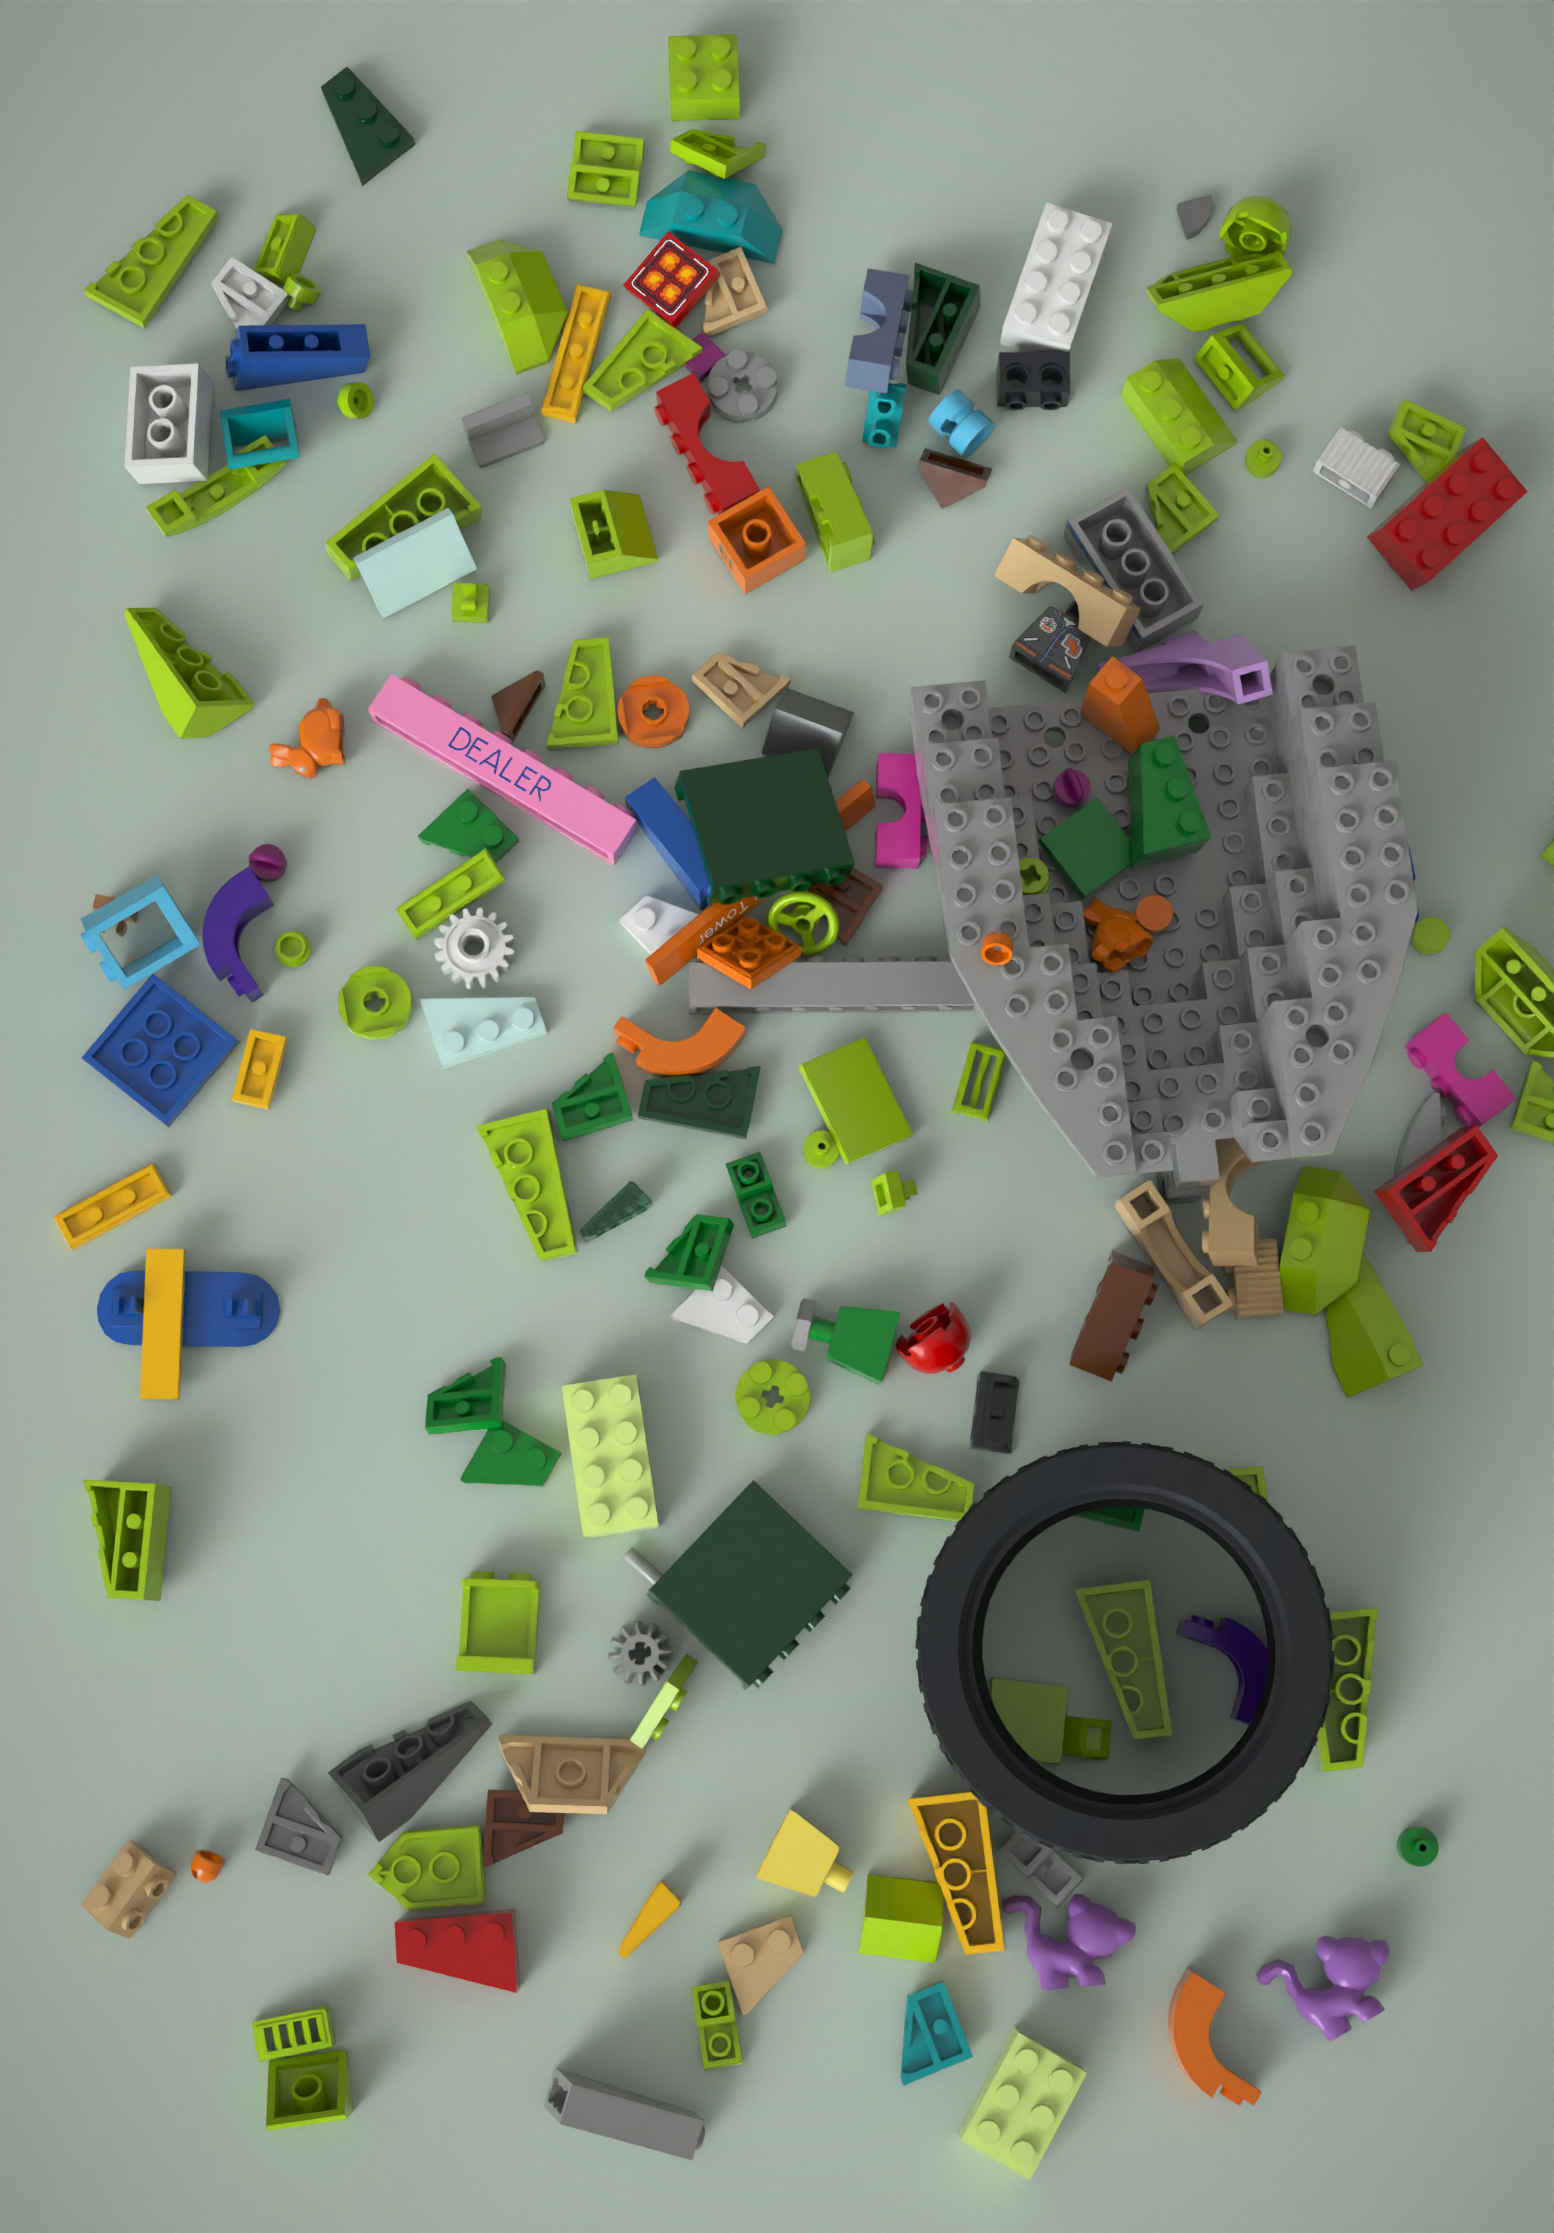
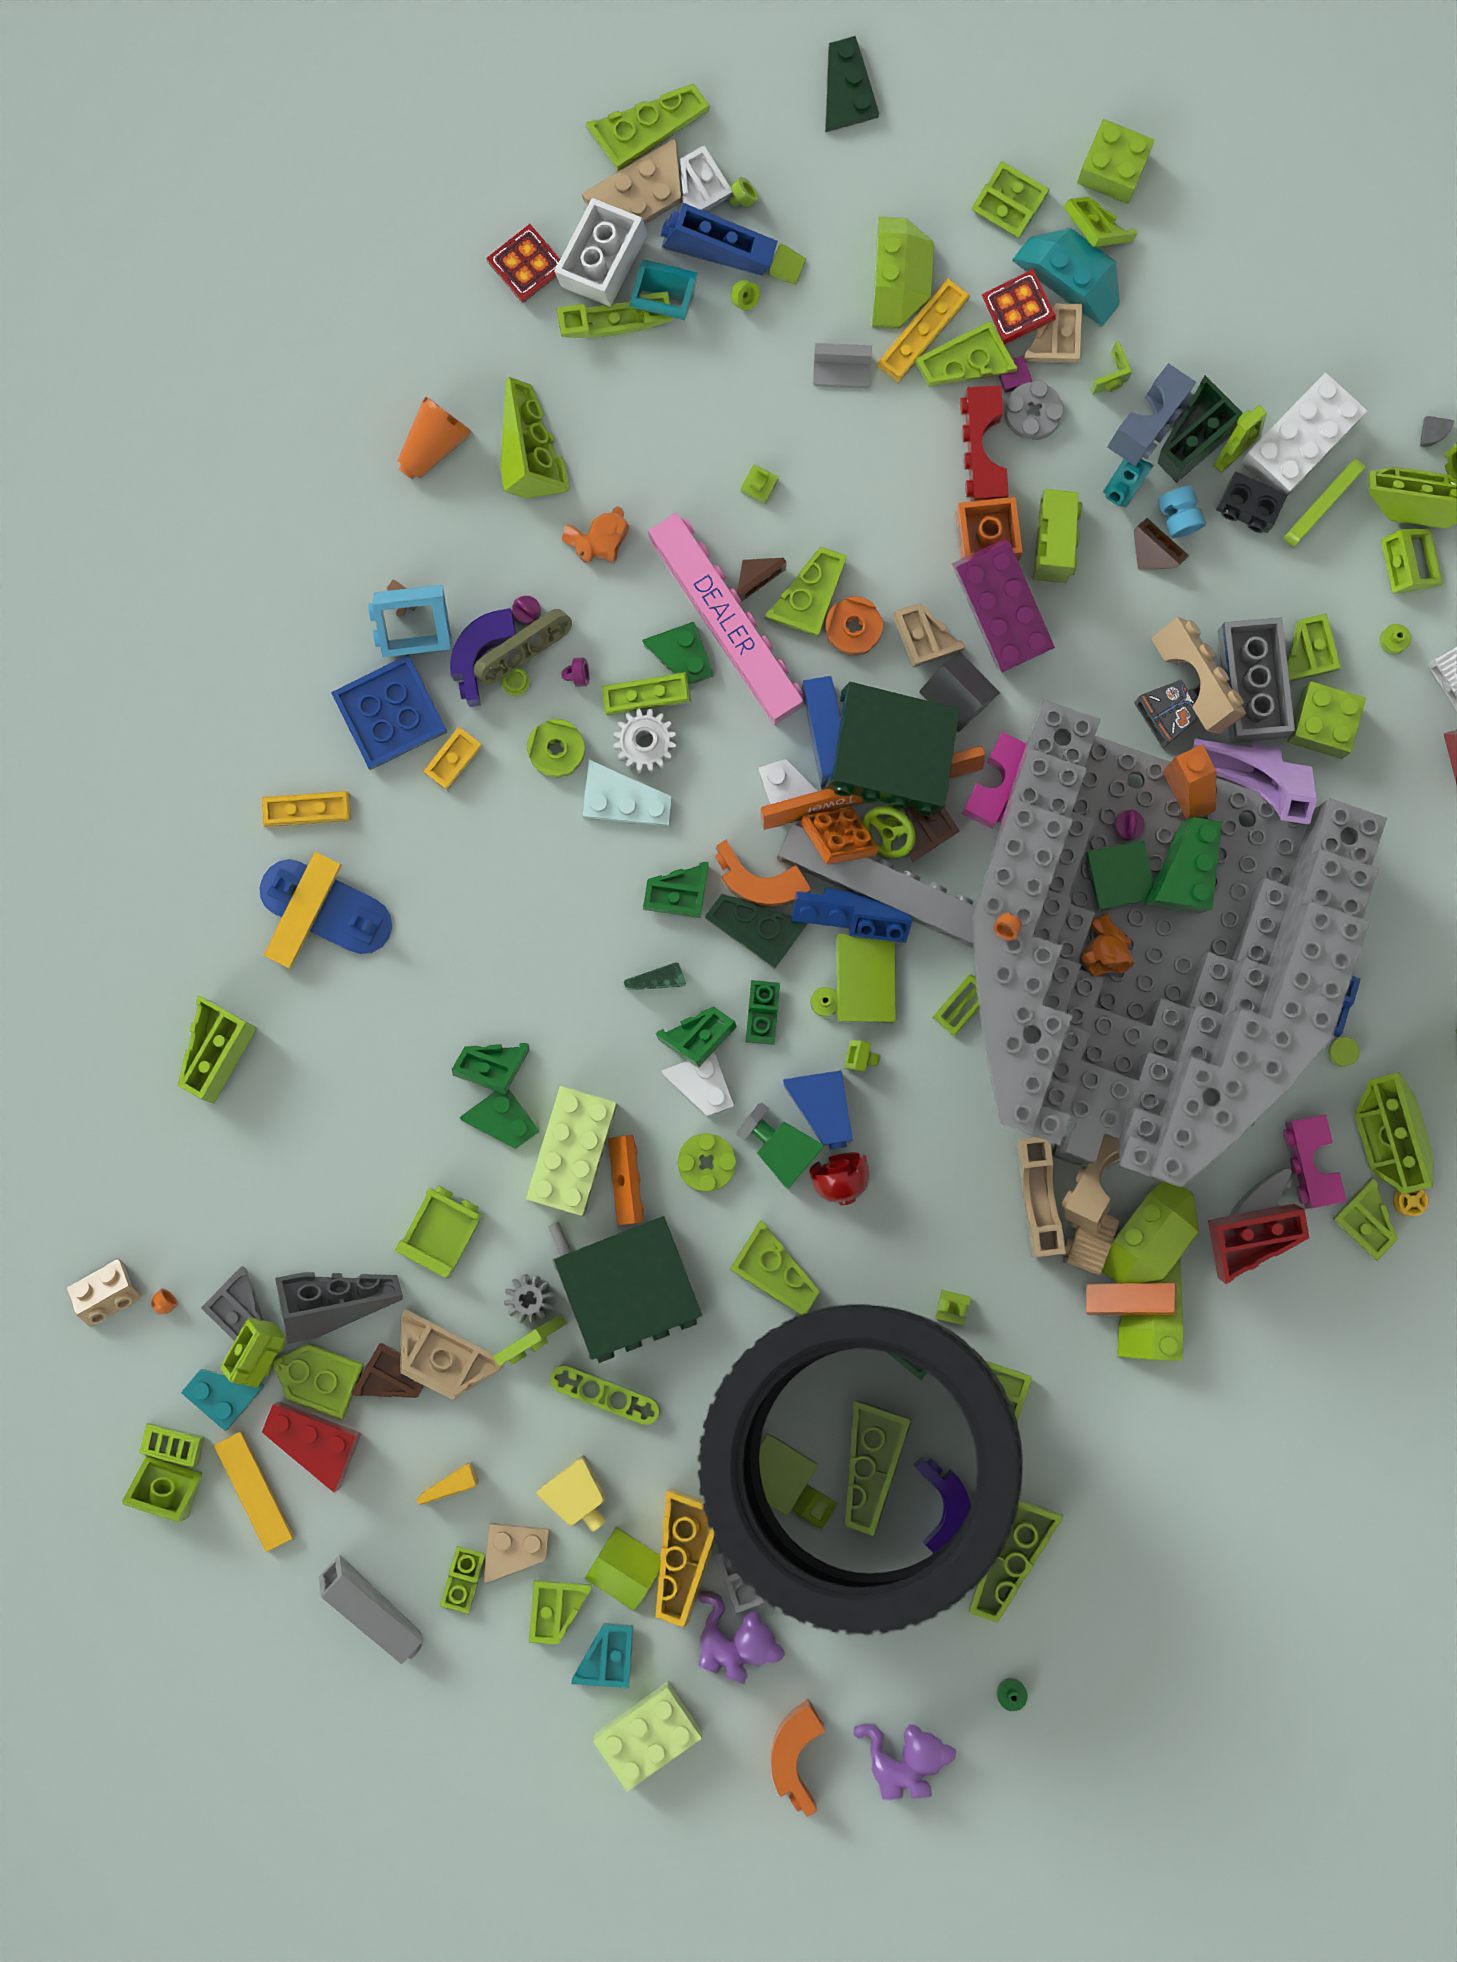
camera: 30 degrees right, 5 degrees up
(66, 717) = (430, 439): none -> orange cone
(85, 475) = (525, 263): none -> tile
(184, 330) = (643, 187): none -> tan wing
(259, 938) = (524, 649): none -> olive beam
(285, 247) = (746, 155): lime slope -> none
(327, 1945) = (219, 1397): none -> teal wing
(342, 1872) = (253, 1352): none -> lime brick
(360, 906) = (579, 671): none -> magenta tile
(387, 347) = (787, 264): none -> lime slope
(412, 500) = (745, 399): lime wedge -> none
(415, 563) = (732, 437): light aqua tile -> none
(418, 2040) = (253, 1491): none -> yellow tile
(531, 1169) = (611, 920): lime wing -> none
(612, 532) = (886, 478): lime slope -> none
(688, 1461) = (625, 1180): none -> orange tile
(781, 1718) = (602, 1400): none -> lime beam
(804, 1031) = (849, 910): none -> blue slope
(812, 611) = (1003, 605): none -> magenta brick
(818, 312) = (1114, 380): none -> lime bracket
(842, 2006) = (554, 1609): none -> lime wing
(876, 1269) = (823, 1106): none -> blue slope
(990, 311) = (1245, 434): none -> lime wing
(994, 1412) = (858, 1248): black hinge -> none
(1038, 869) = (1061, 885): lime wheel -> none
(1112, 345) = (1324, 502): none -> lime beam
(1114, 1317) = (977, 1220): reddish brown wedge -> none
(1134, 1427) = (952, 1307): none -> lime tile
(1154, 914) = (1144, 945): orange tile -> none
(1176, 414) = (1346, 577): lime slope -> none
(1232, 578) = (1327, 720): none -> lime brick
(1331, 1323) = (1131, 1299): none -> orange tile

